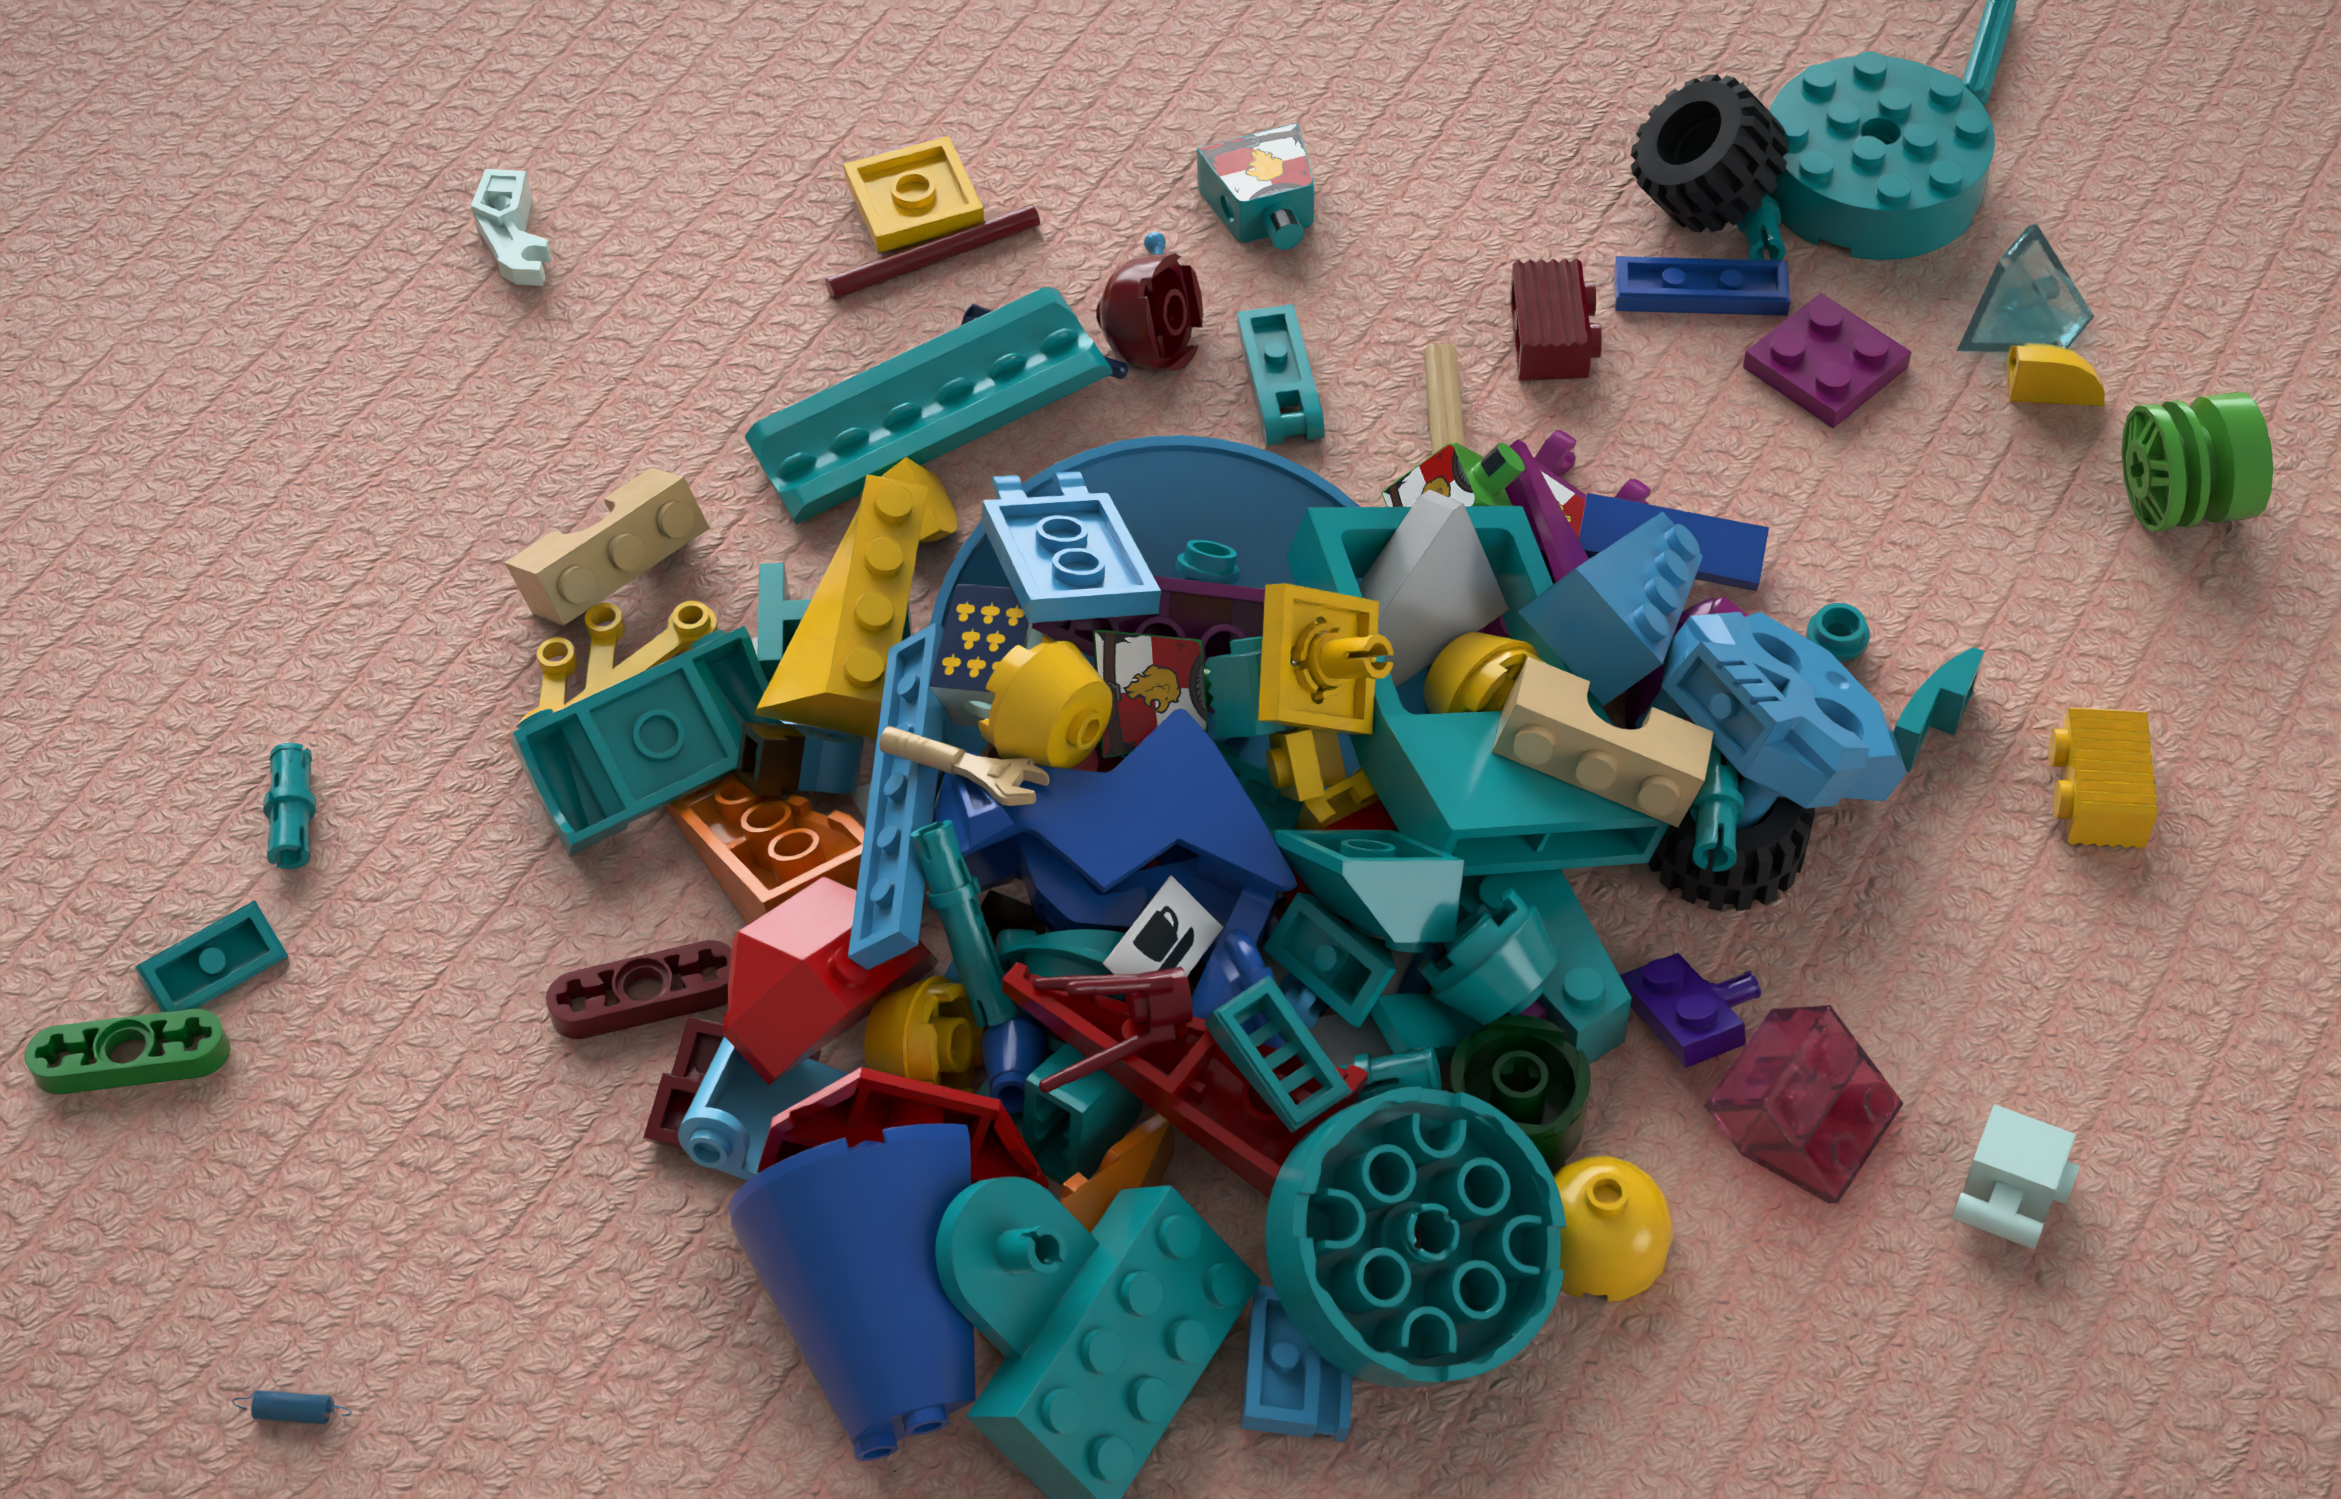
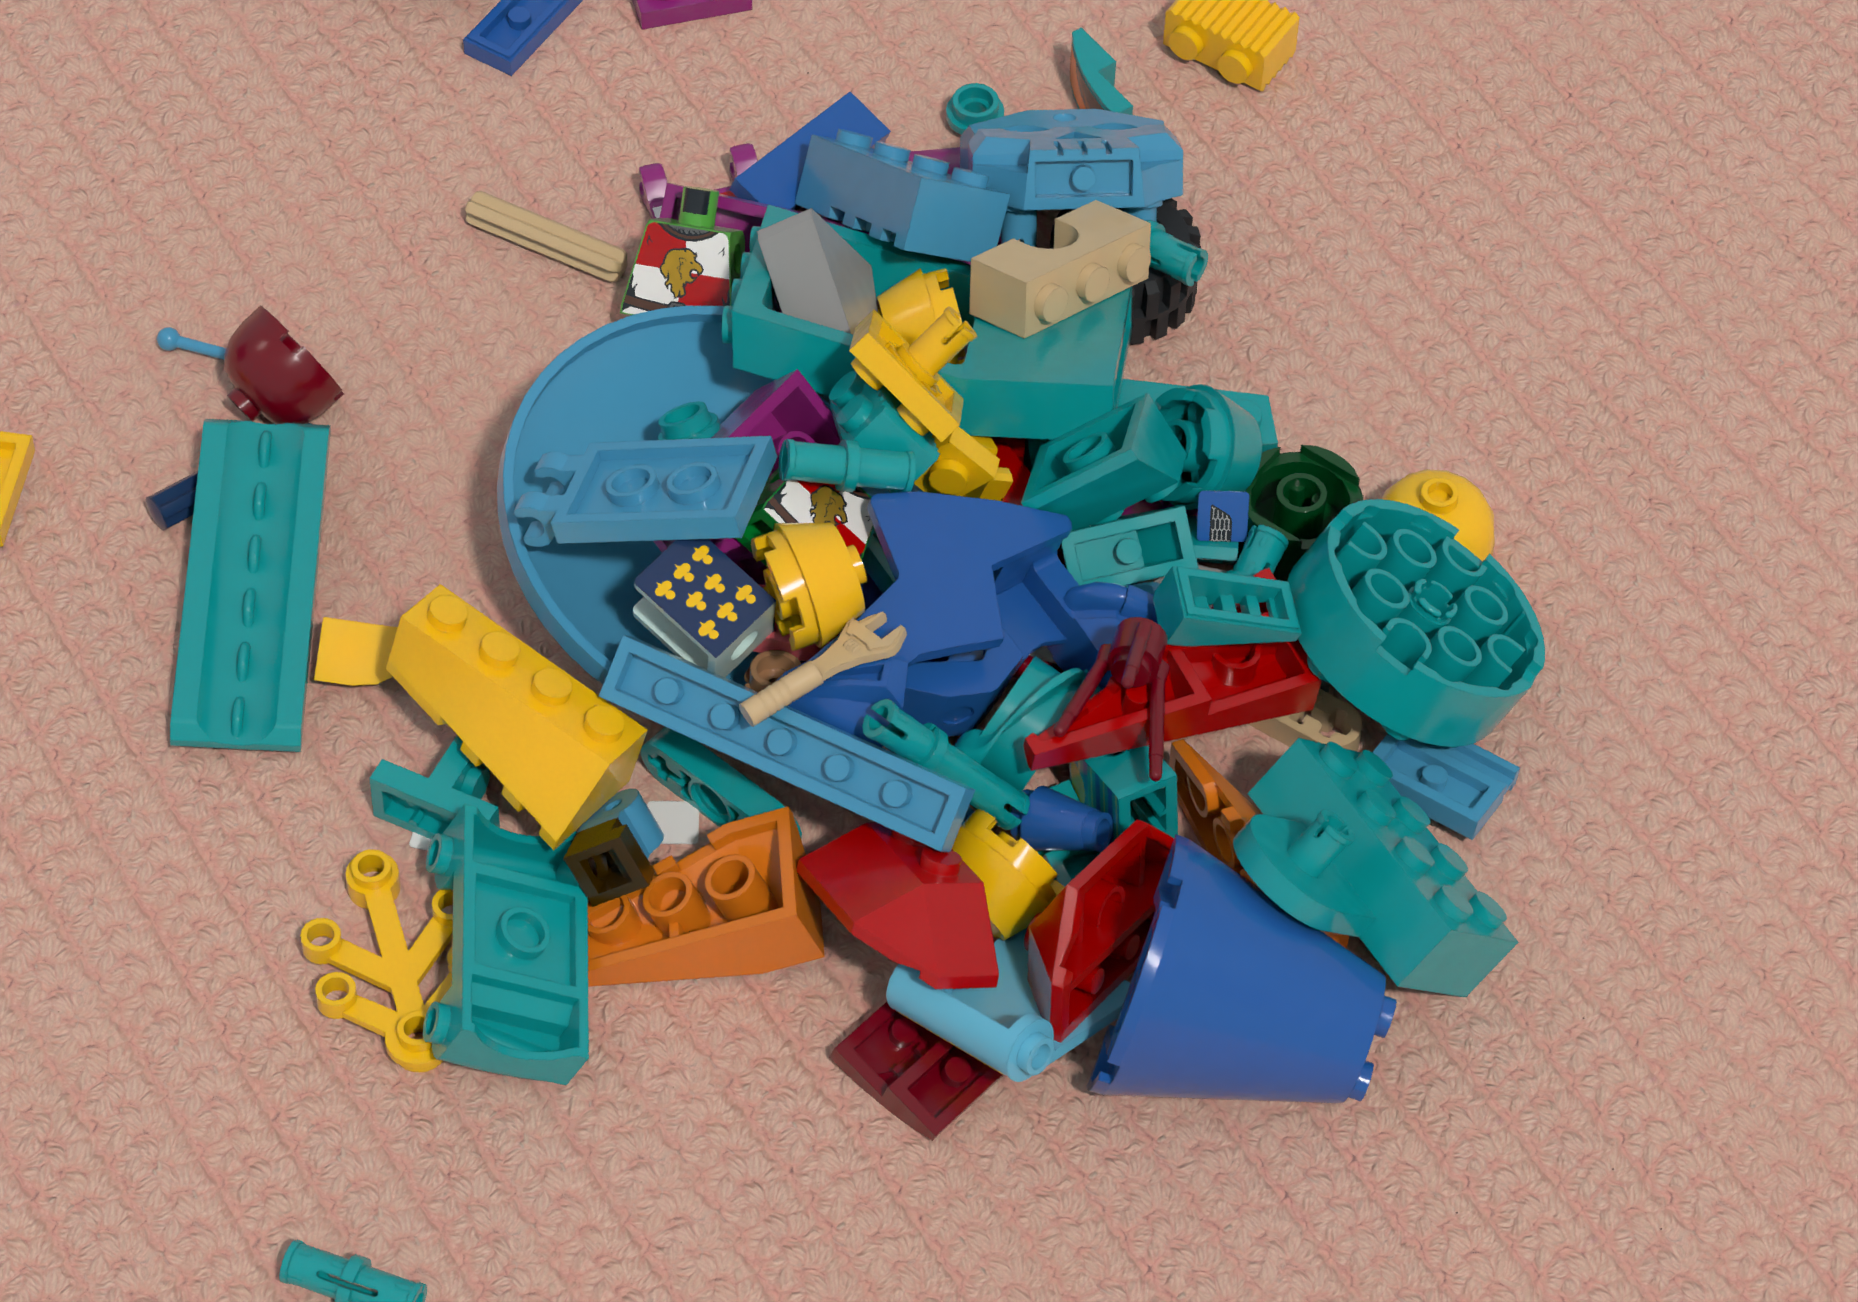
camera: 65 degrees left, 0 degrees up
(577, 570) = (255, 935): tan arch -> none
(619, 975) = (776, 1103): dark red beam -> none
(932, 251) = (37, 506): dark red bar -> none
(1166, 935) = (1057, 636): white sticker -> none
(1185, 667) = (847, 465): none -> teal pin
(1260, 185) = (178, 228): torso -> none
(1280, 373) = (413, 322): teal plate -> none
(1425, 1014) = (1222, 516): none -> blue sticker
(1552, 320) = (507, 114): dark red brick -> none
(1688, 1011) = (1290, 378): dark purple plate -> none
(1805, 1100) = (1402, 353): clear pink slope -> none
(2016, 1177) = (1541, 270): light aqua brick -> none

